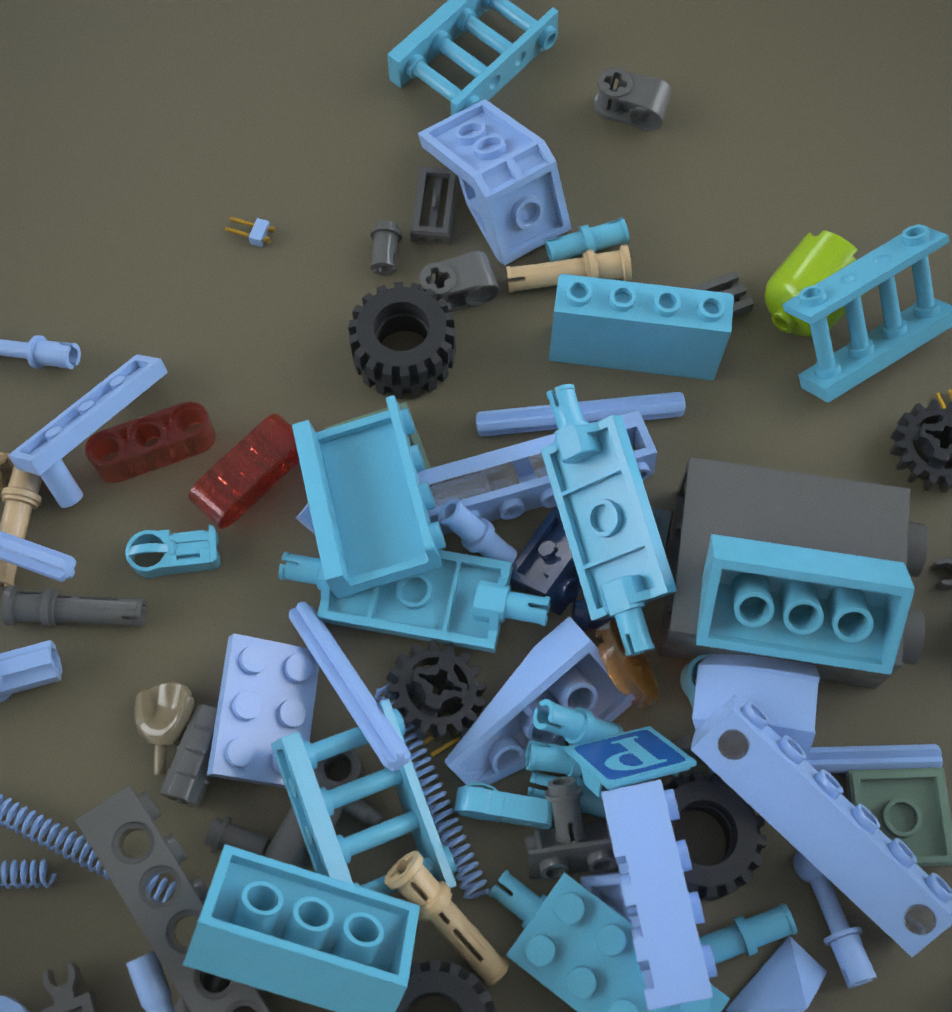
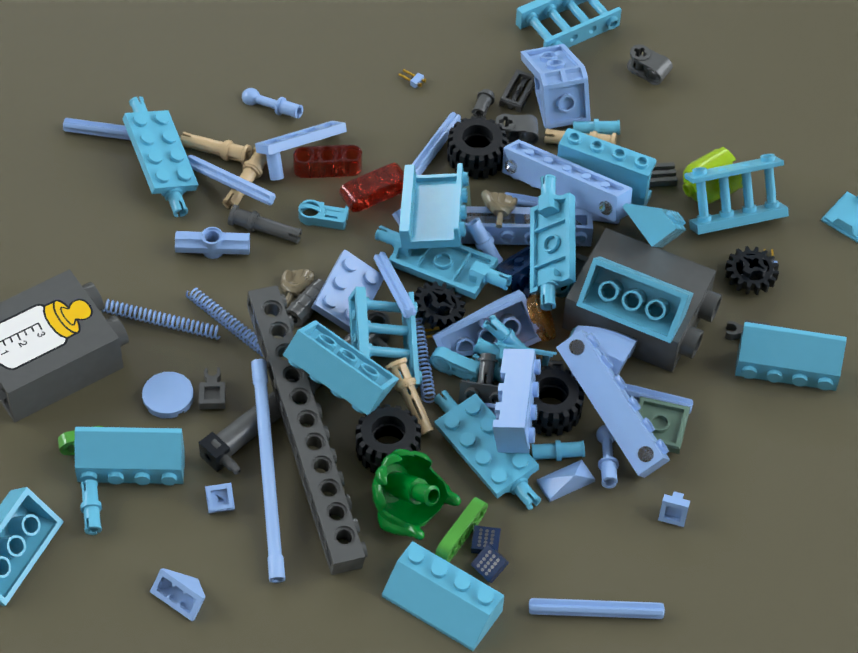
camera: 15 degrees right, 15 degrees down
(327, 353) = (435, 143): none -> light blue axle
(484, 455) = (499, 204): none -> dark tan piece
(604, 373) = (591, 190): none -> light blue piece
(777, 423) = (656, 224): none -> medium azure slope

